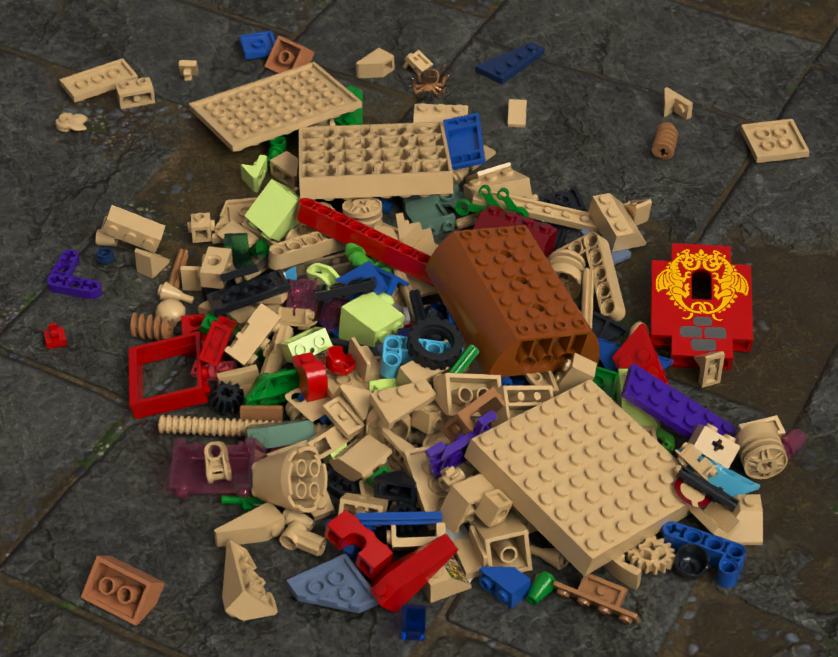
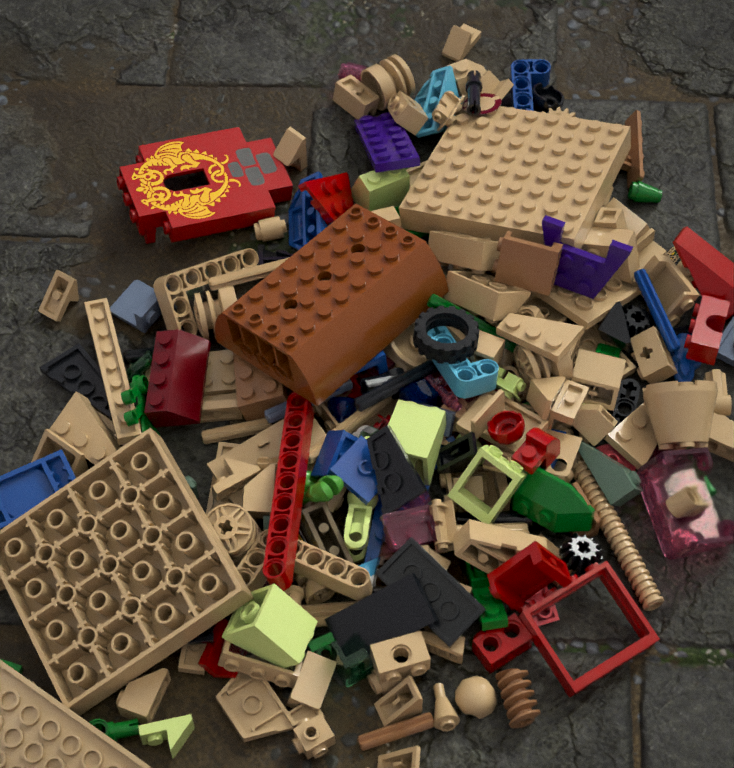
camera: 115 degrees left, 15 degrees up
(505, 583) = (659, 214): blue slope -> none
(615, 223) = (104, 298): tan slope -> none
(802, 538) = (460, 42): none -> tan slope

